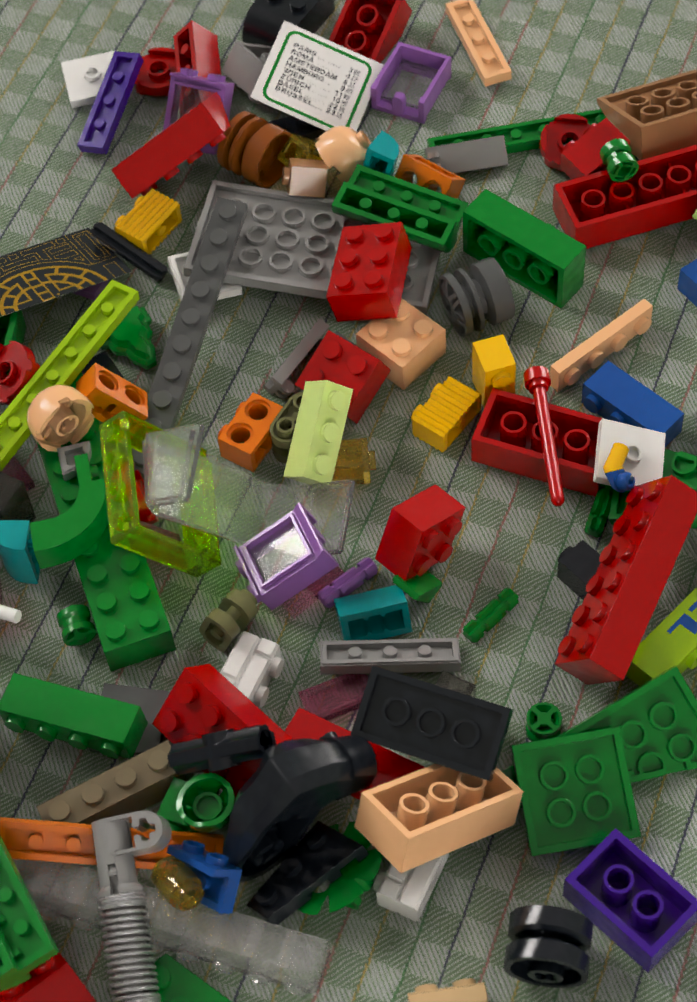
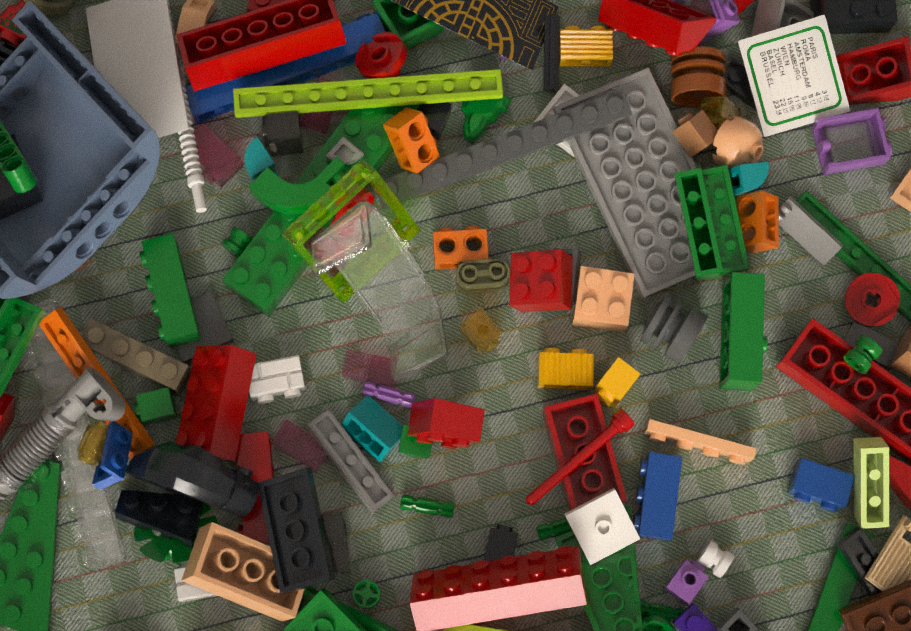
camera: 45 degrees right, 20 degrees up
(59, 416) = (361, 120): light nougat cylinder -> none
(209, 810) = (158, 424): green helmet -> none
(221, 749) = (190, 410): black piece -> none
(229, 619) = (311, 340): olive brick -> none
(278, 383) = (539, 235): light grey hinge -> none
(284, 558) = (369, 343): medium lavender window -> none
(318, 432) = (476, 299): yellowish green brick -> none
(369, 272) = (634, 241): red brick -> none
(583, 156) = (878, 326): red brick -> none
(614, 471) = (576, 526): arm -> none

